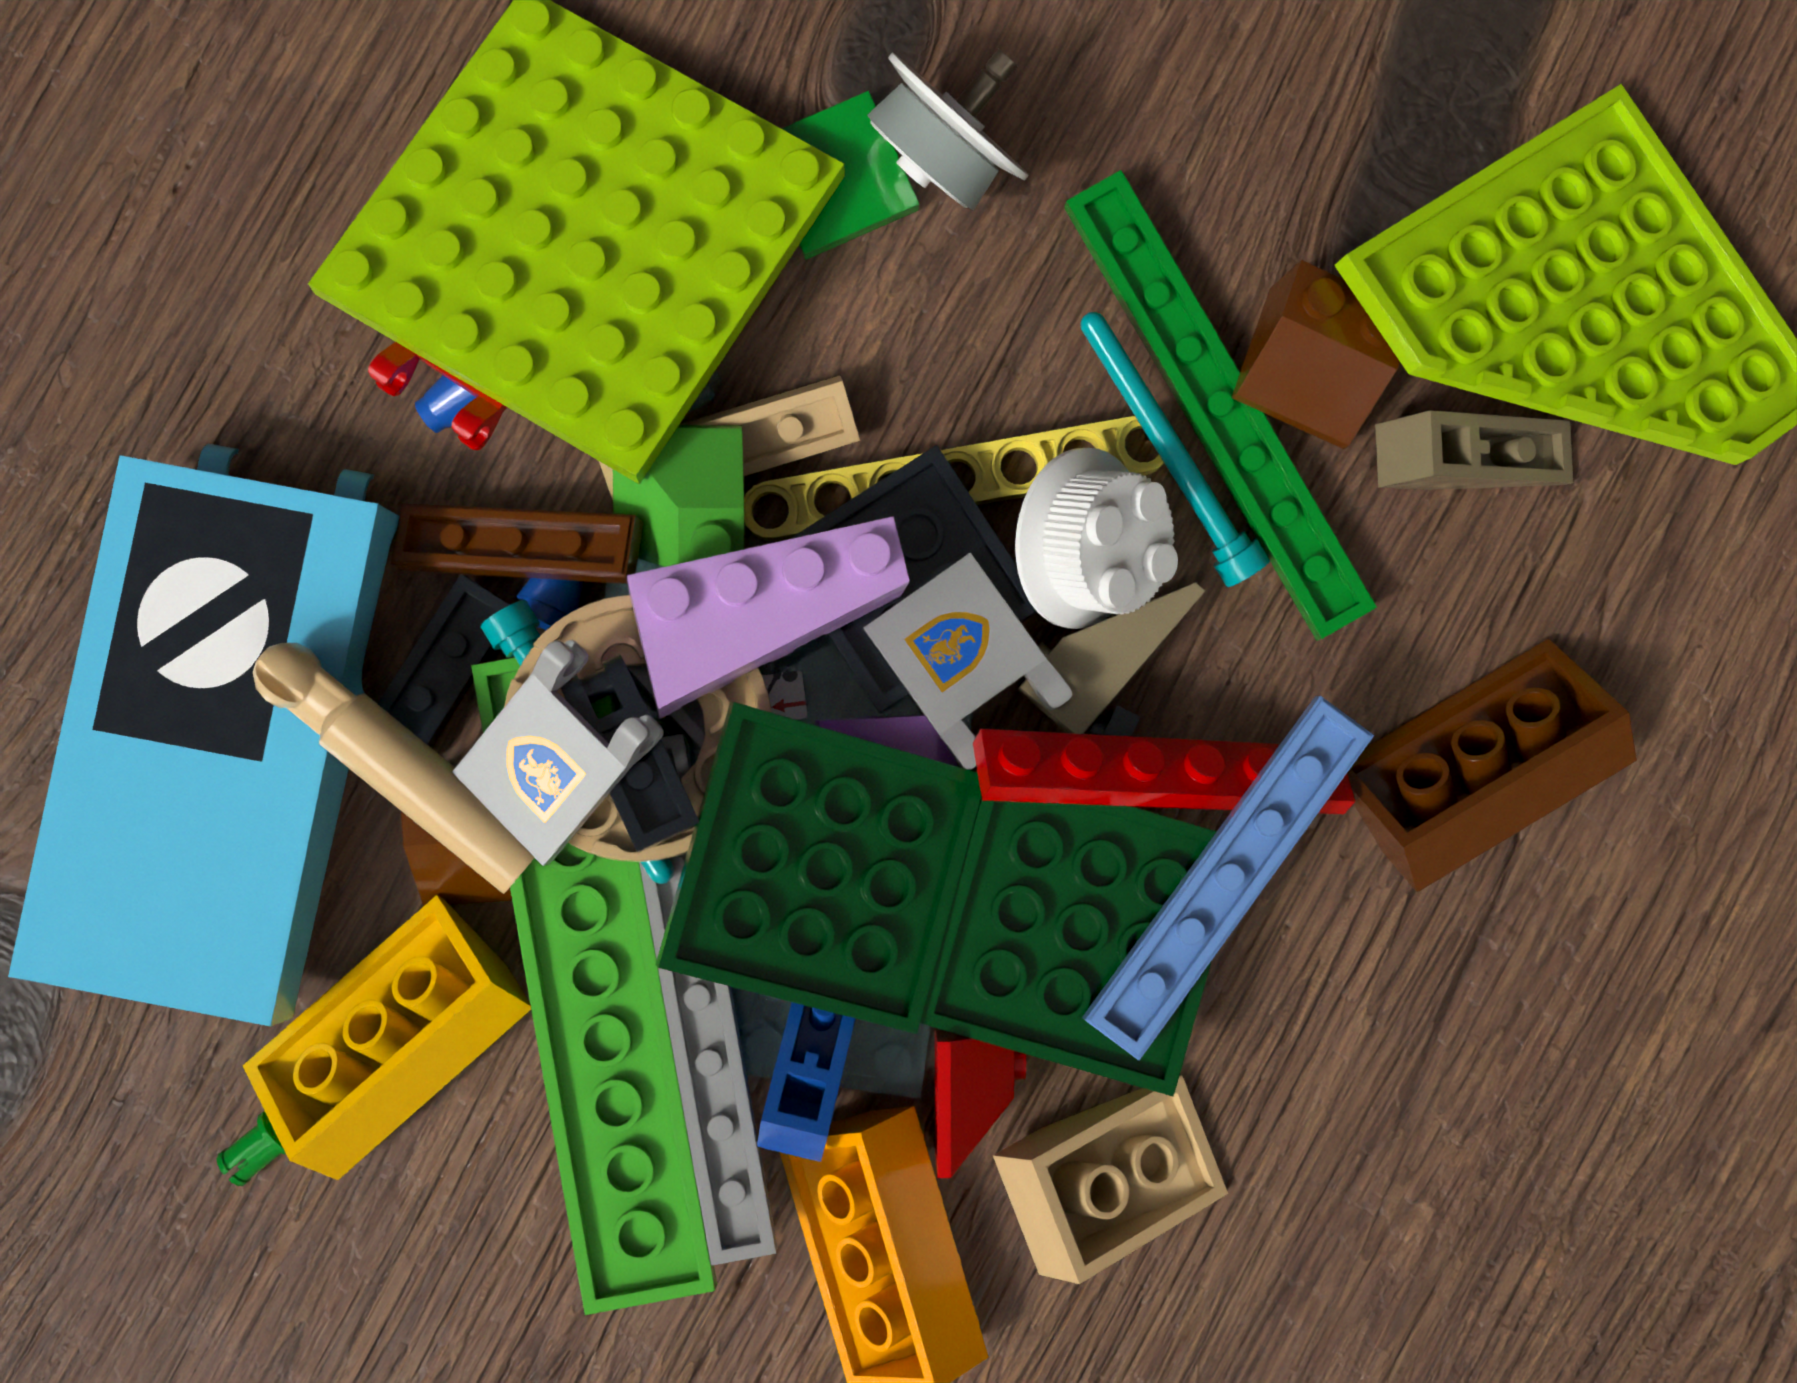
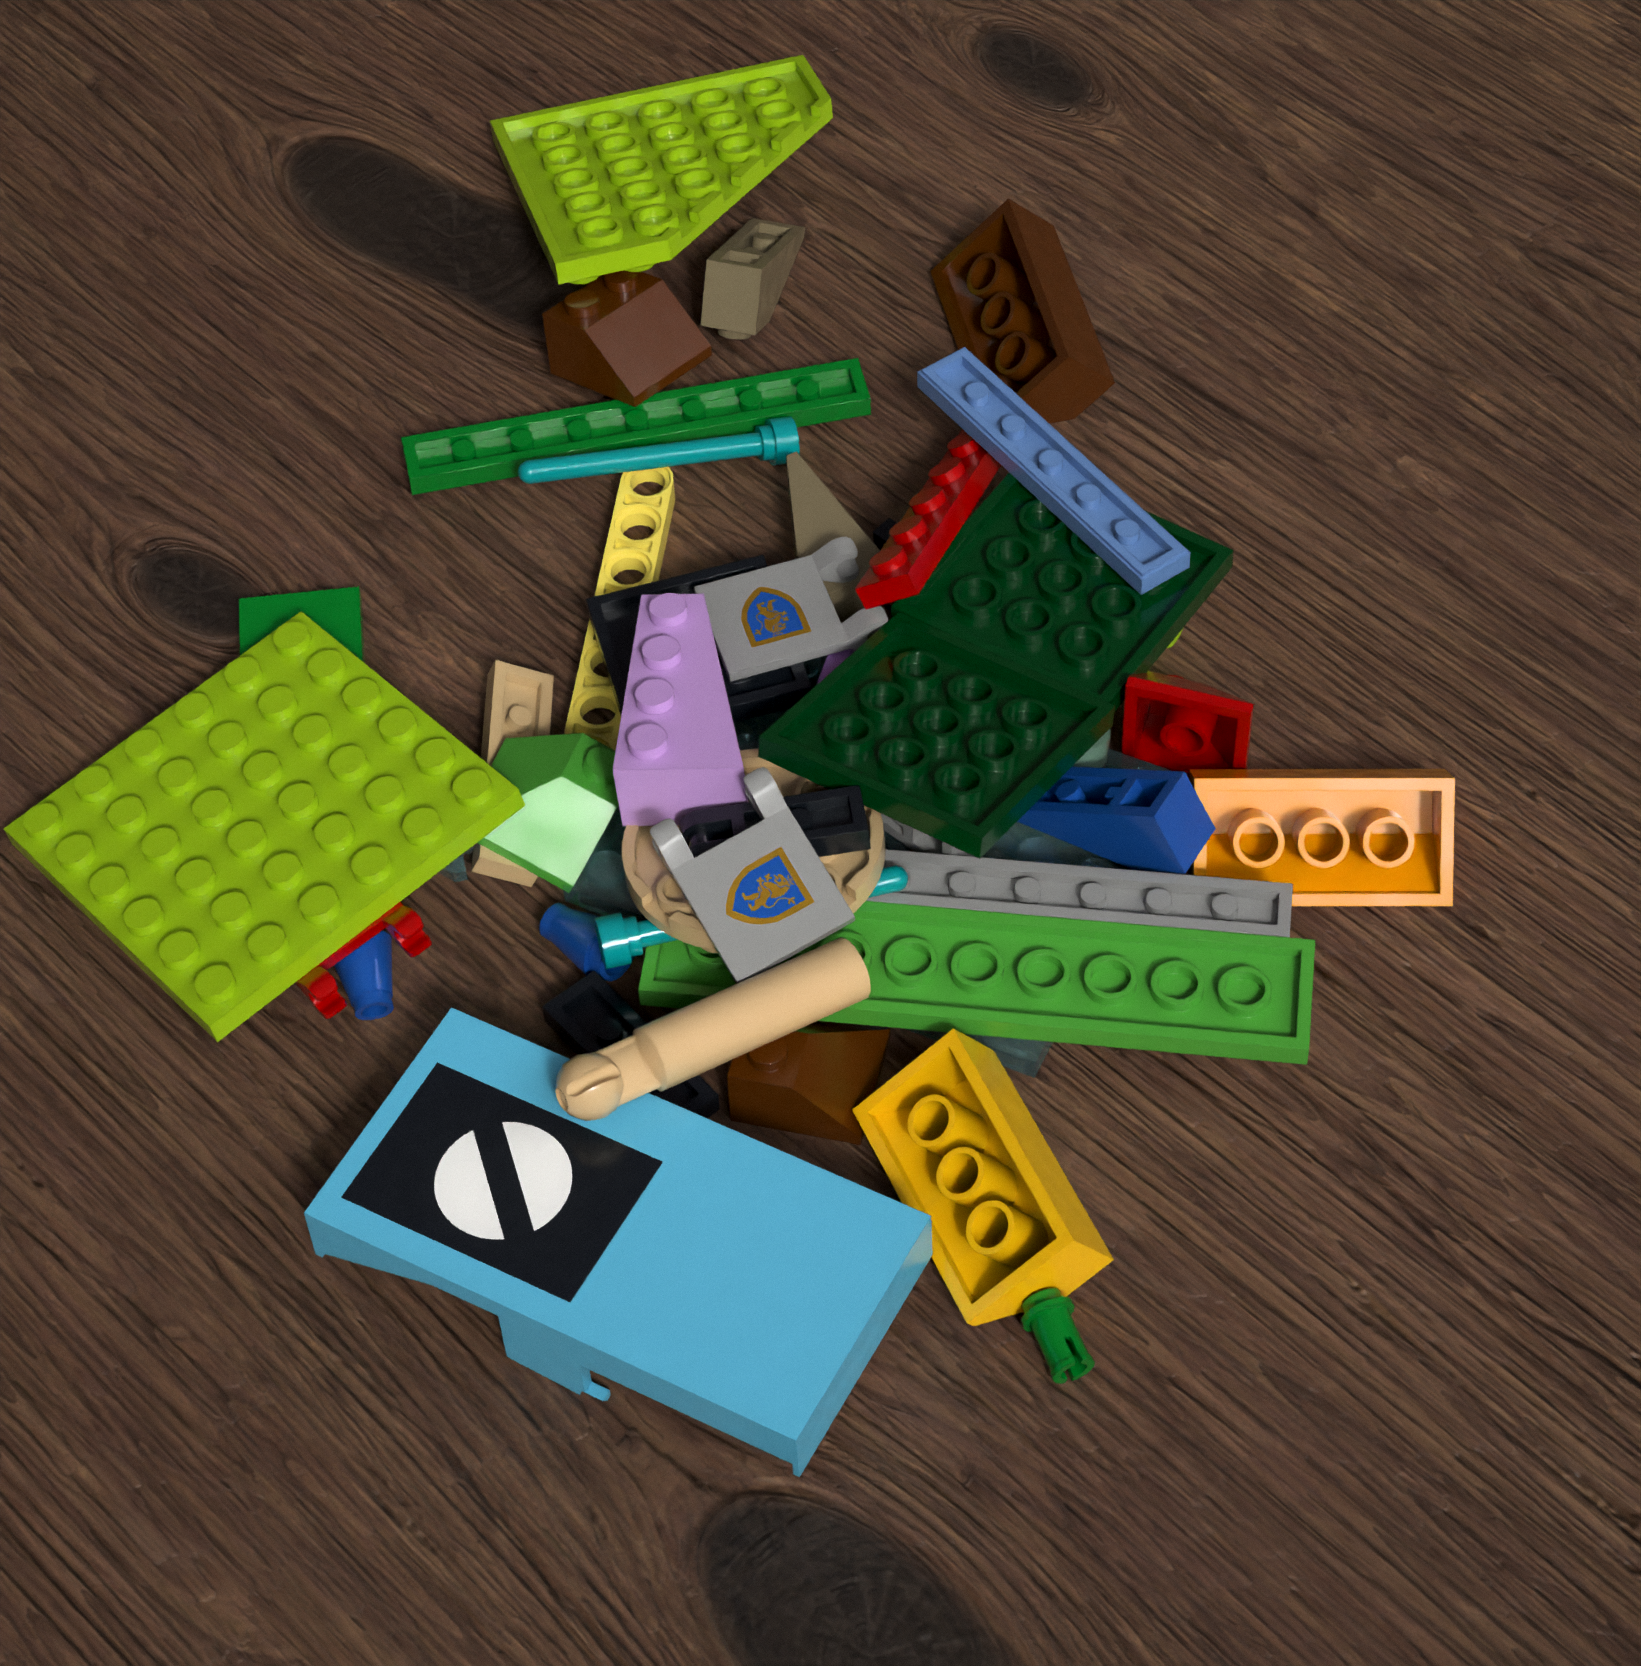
camera: 70 degrees left, 35 degrees down
(517, 543) = (541, 928): reddish brown tile -> none
(940, 133) = (311, 522): piece -> none
(1092, 539) = (721, 502): white piece -> none
(1109, 1180) = (1306, 657): tan slope -> none

